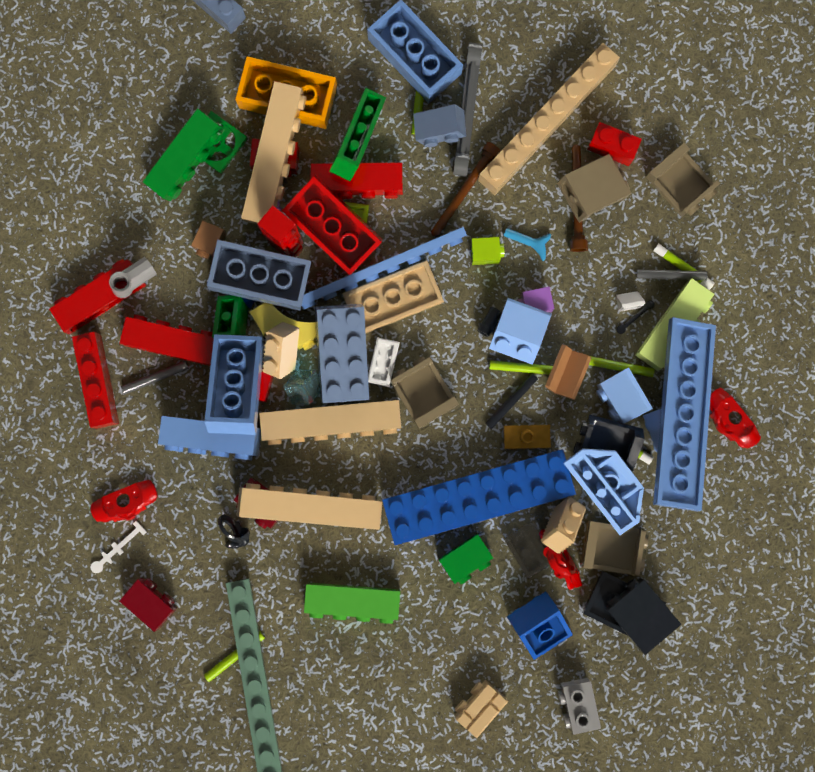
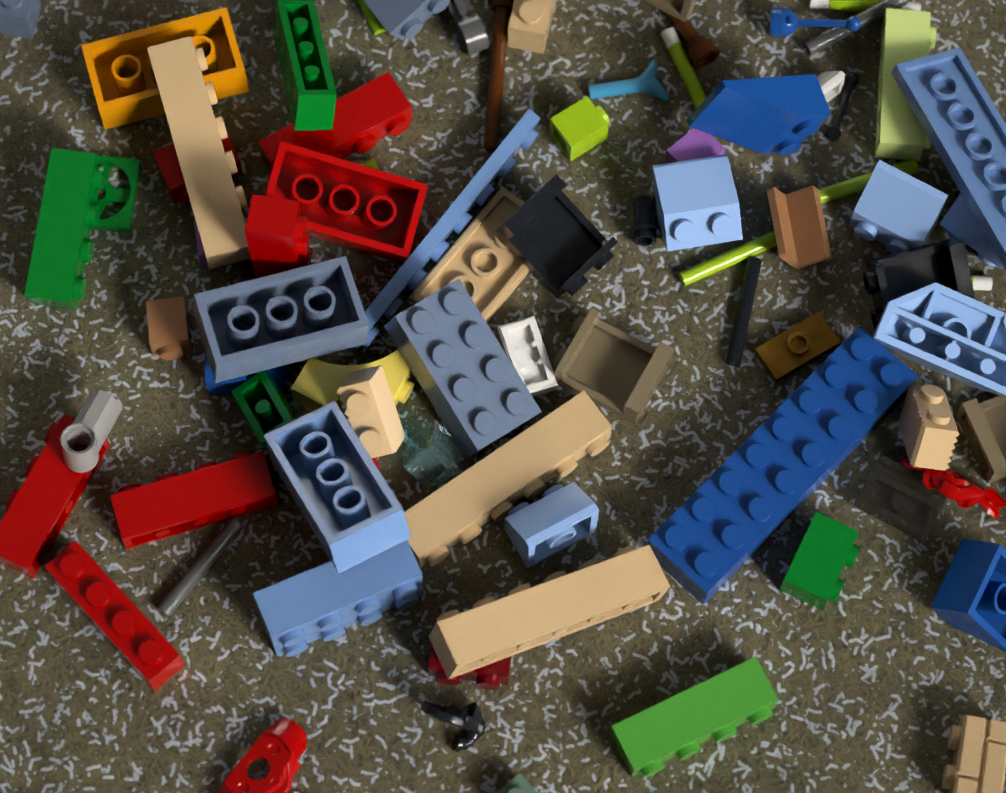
camera: 30 degrees left, 15 degrees down
(339, 458) = (551, 523): none -> light blue slope
(435, 307) = (556, 239): none -> black panel
(563, 254) = (683, 66): none -> lime bar
(587, 304) = (764, 112): none -> blue slope
(634, 251) = (785, 22): none -> blue hinge

